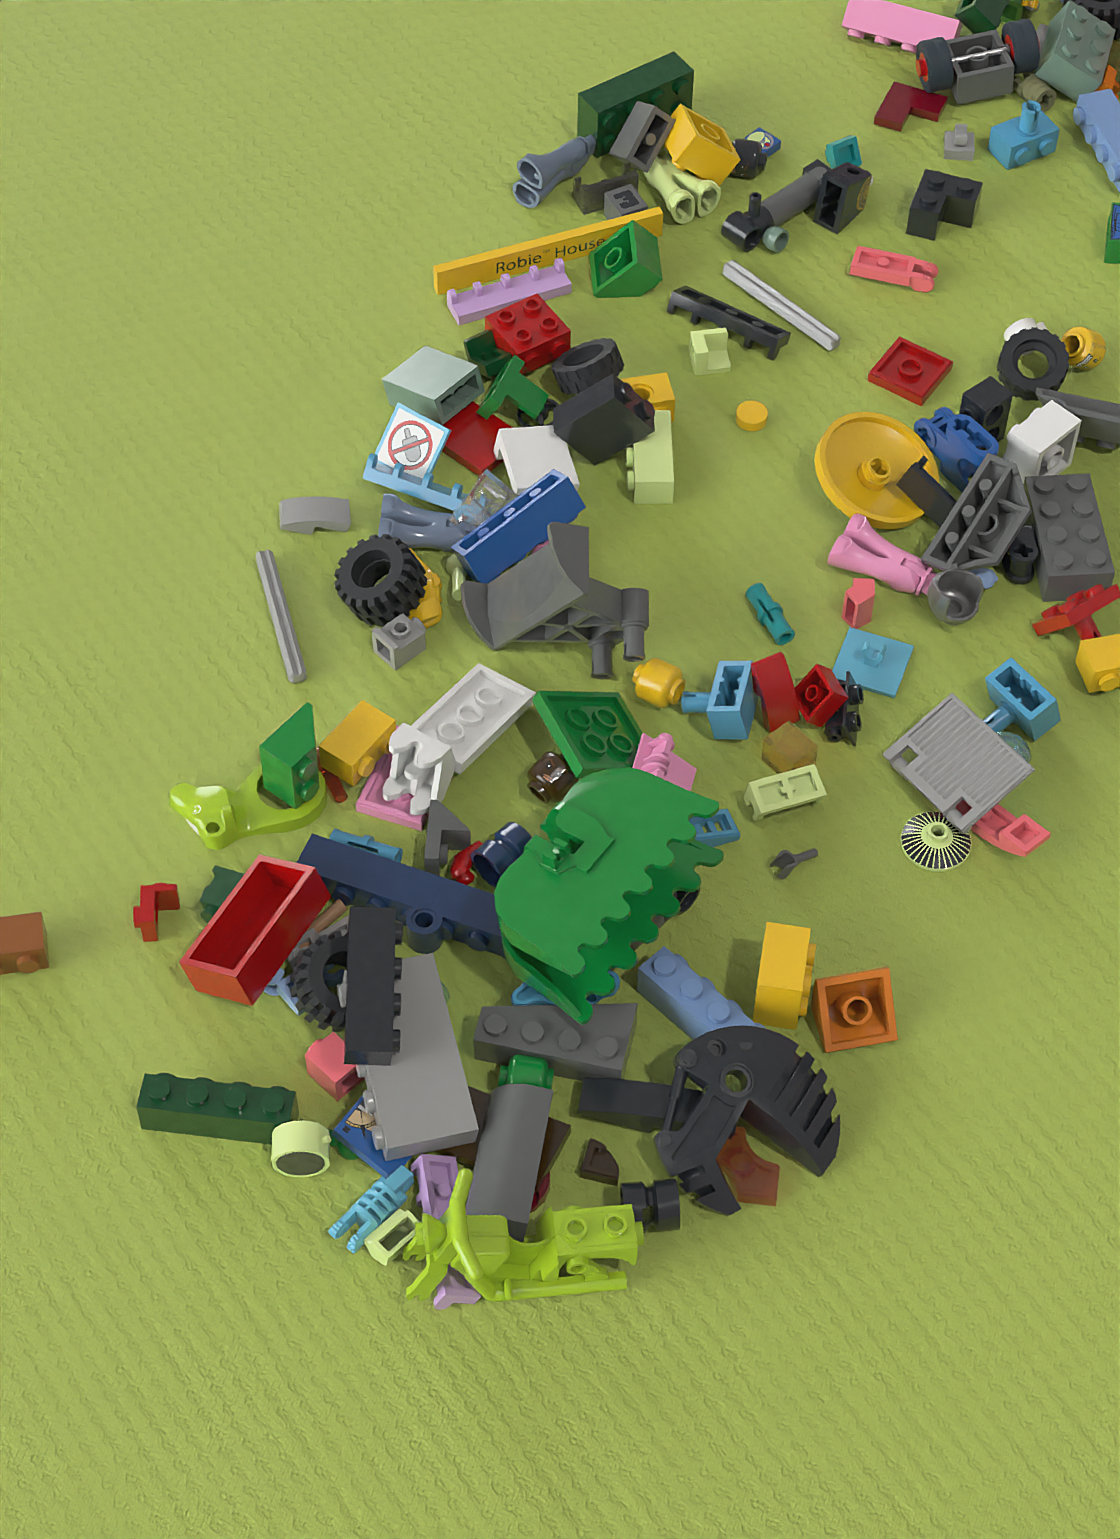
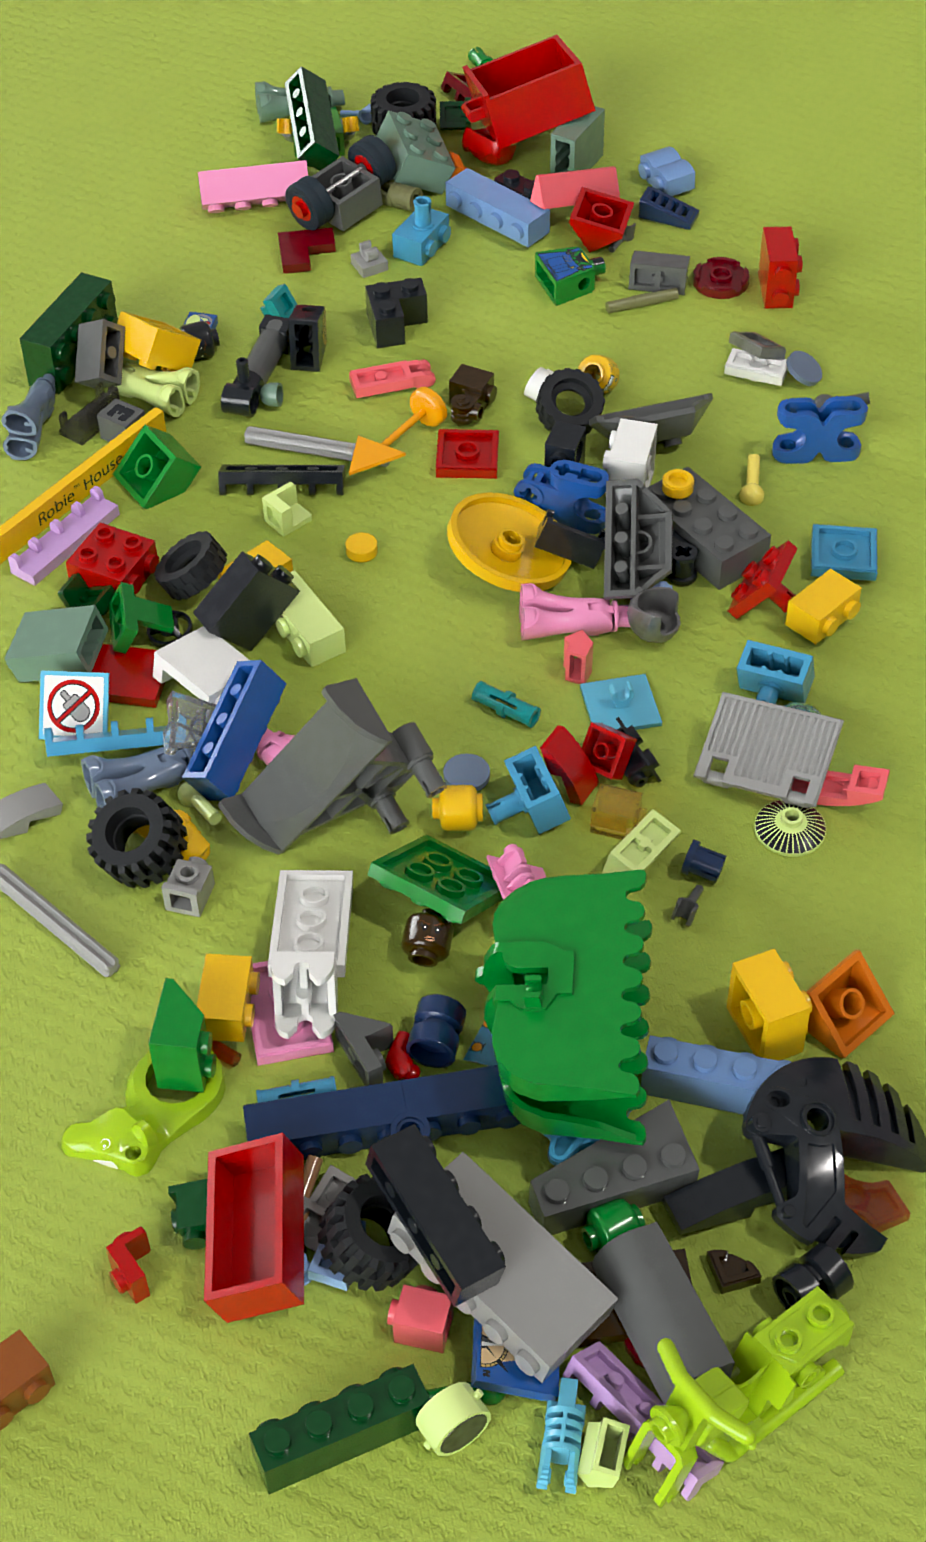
camera: 30 degrees left, 5 degrees down
(692, 657) = (467, 770): none -> sand blue piece
(819, 333) = (427, 409): none -> light orange piece
(830, 831) = (703, 862): none -> dark blue bush
(952, 315) = (470, 394): none -> dark brown brick
(1060, 485) = (678, 484): none -> yellow tile

